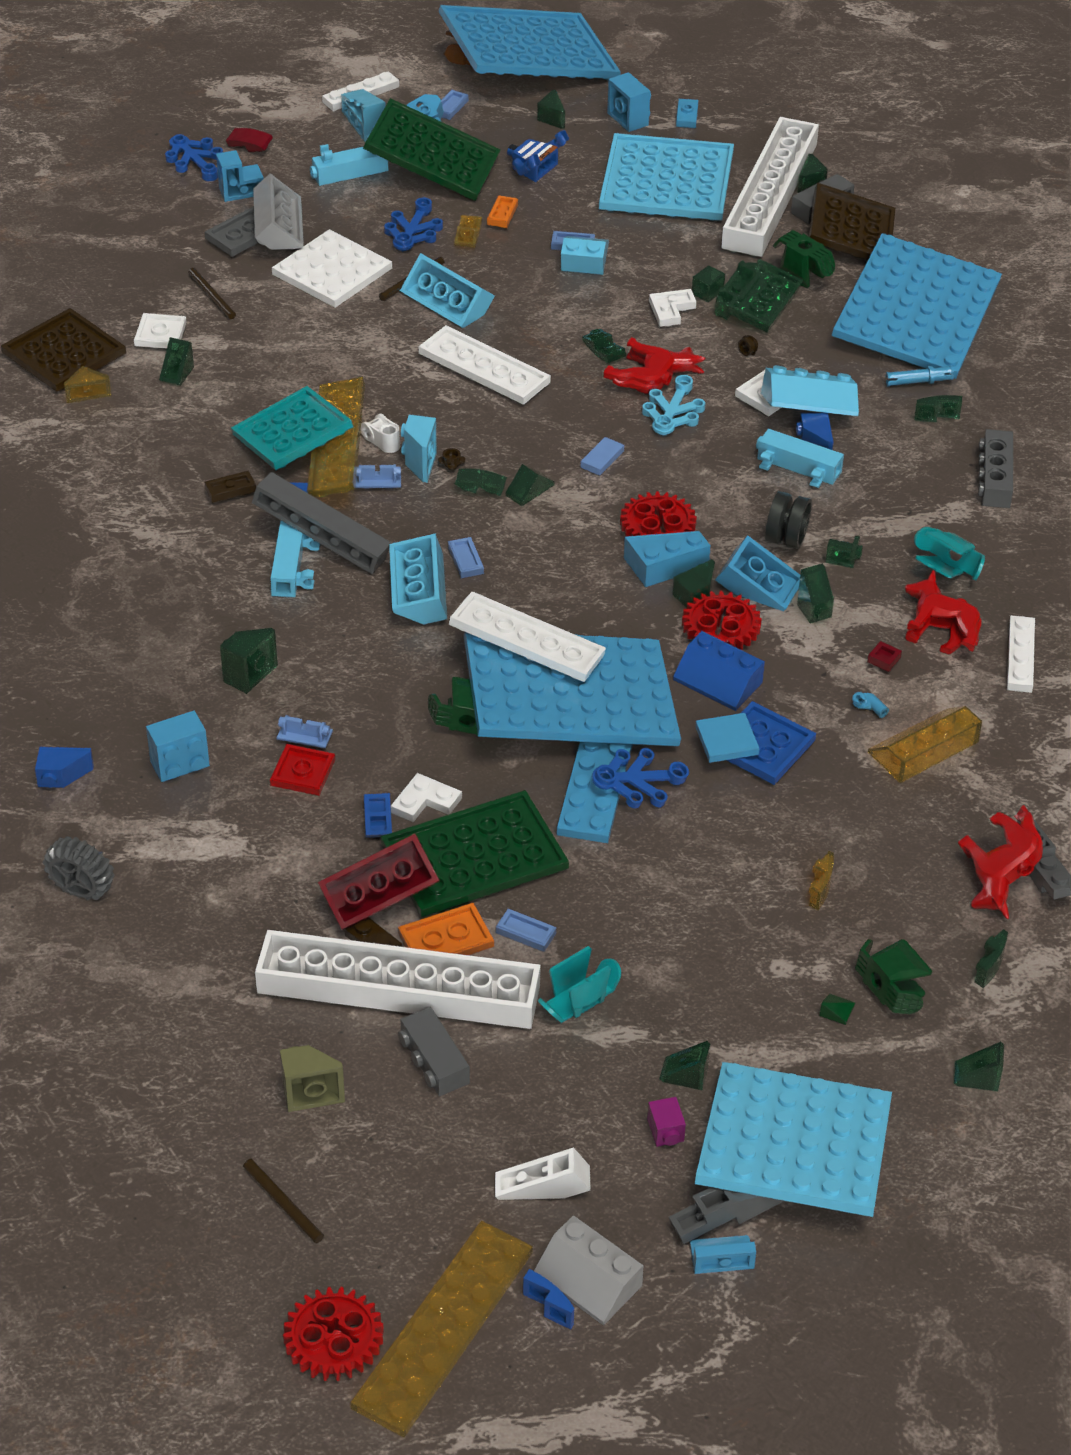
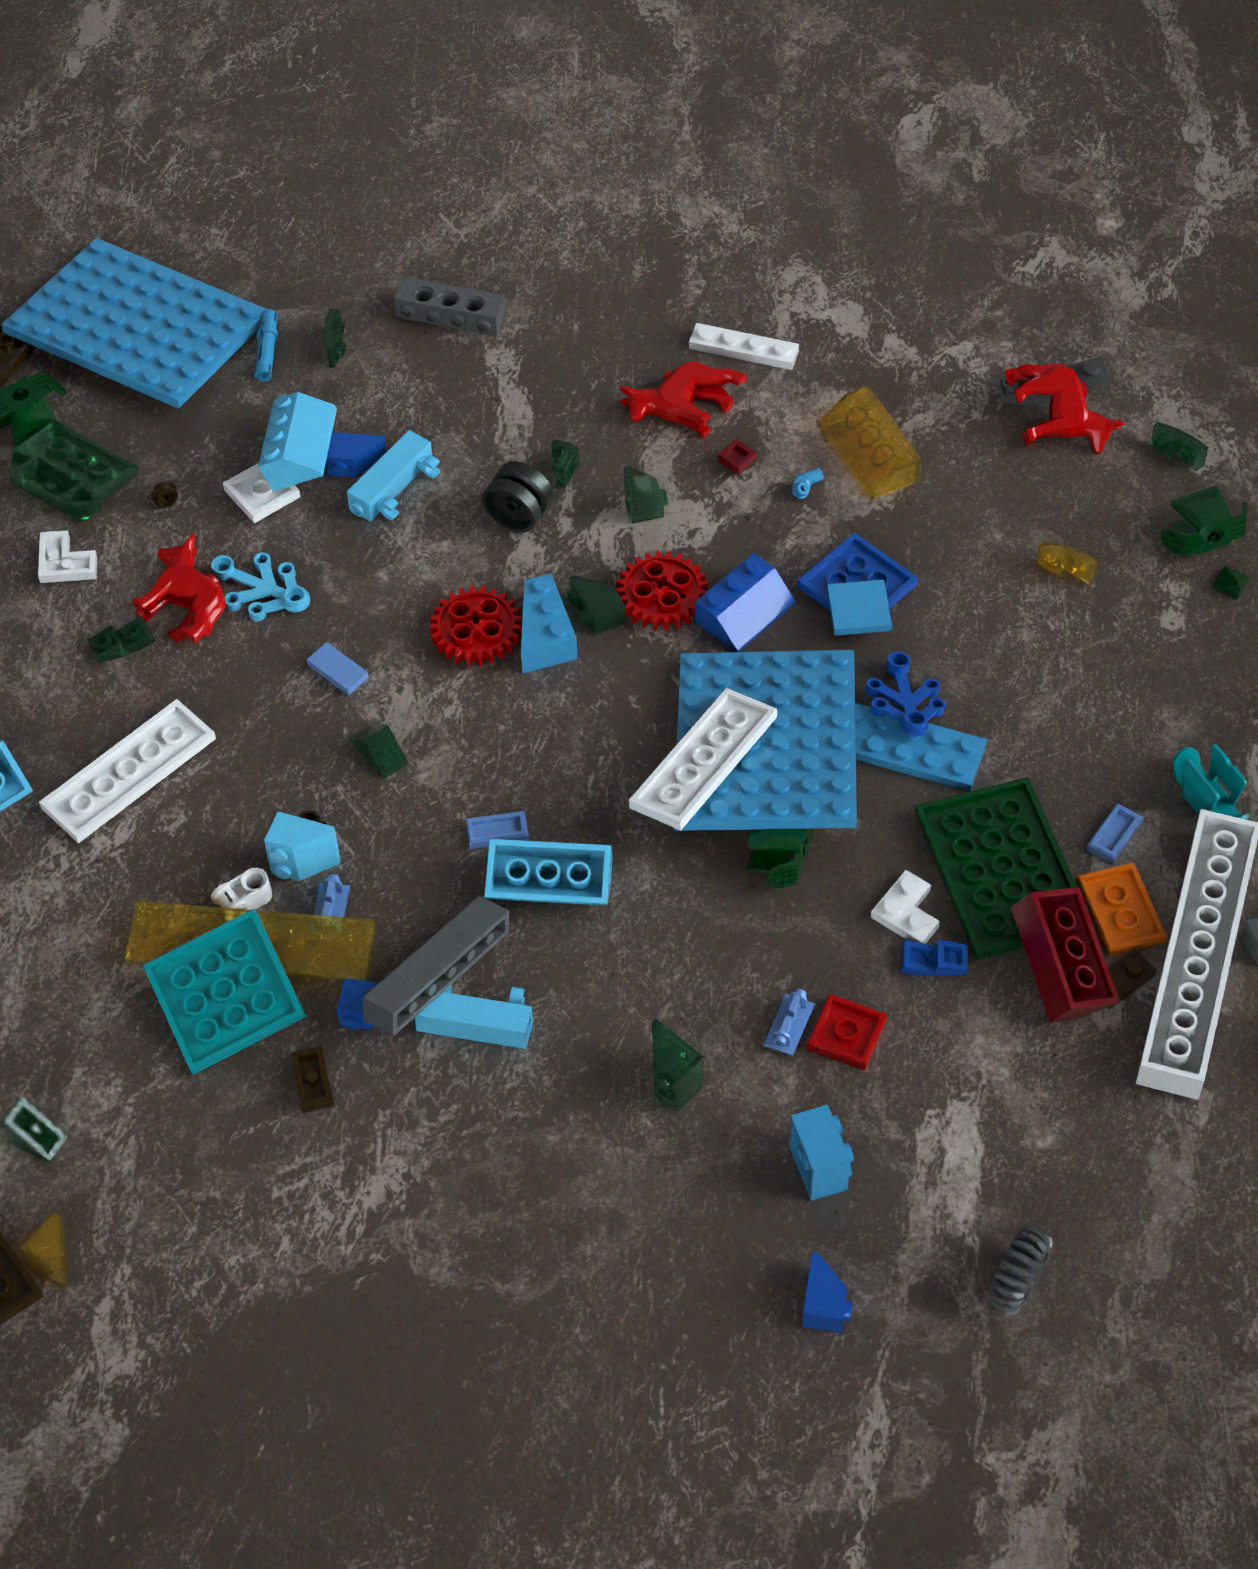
camera: 80 degrees left, 10 degrees up
(472, 479) = (362, 798): clear green slope -> none
(707, 283) = (32, 514): clear green brick -> none
(759, 576) = (590, 545): dark azure slope -> none
(940, 544) = (597, 359): teal piece -> none

